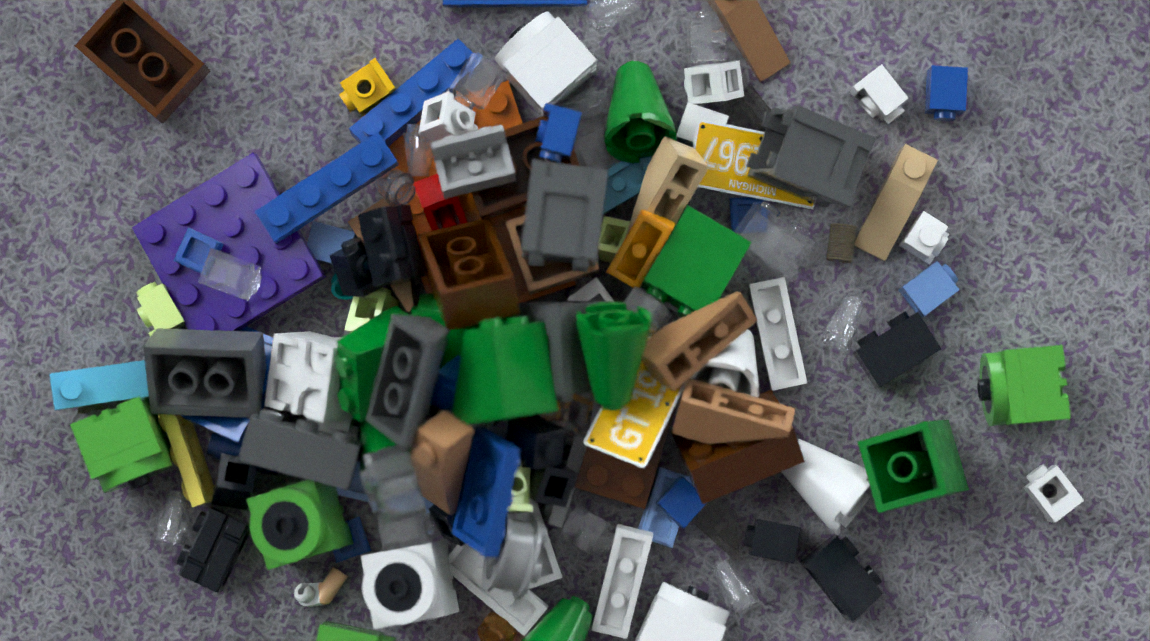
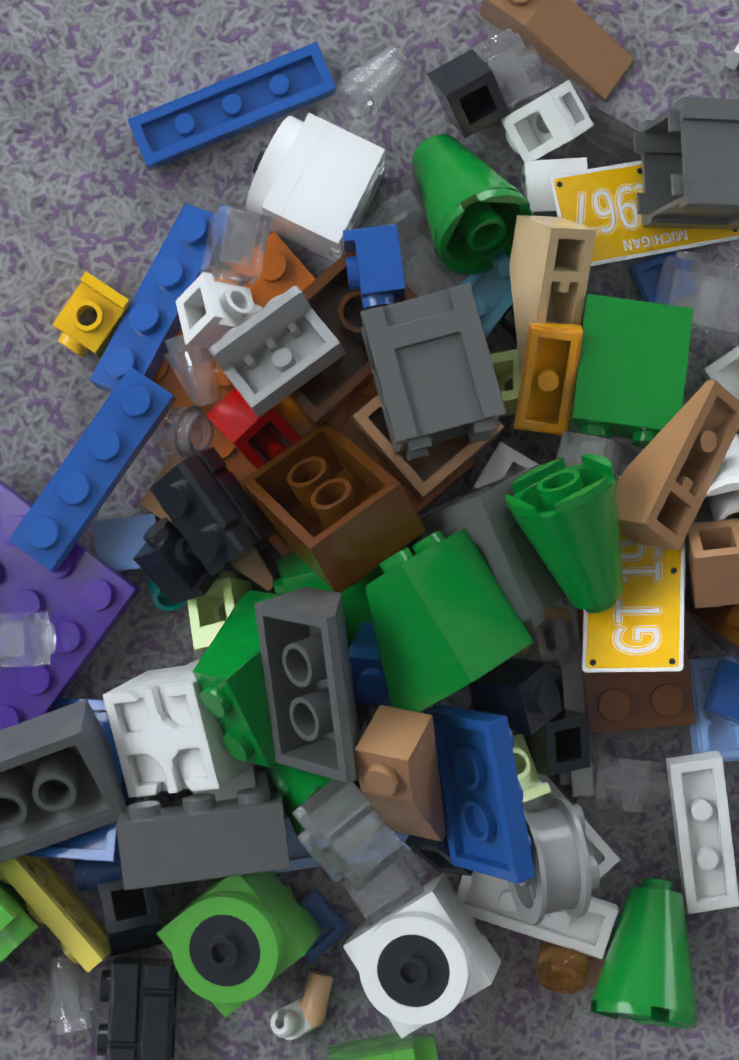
camera: 20 degrees left, 0 degrees up
(670, 42) = (468, 93): none -> black brick

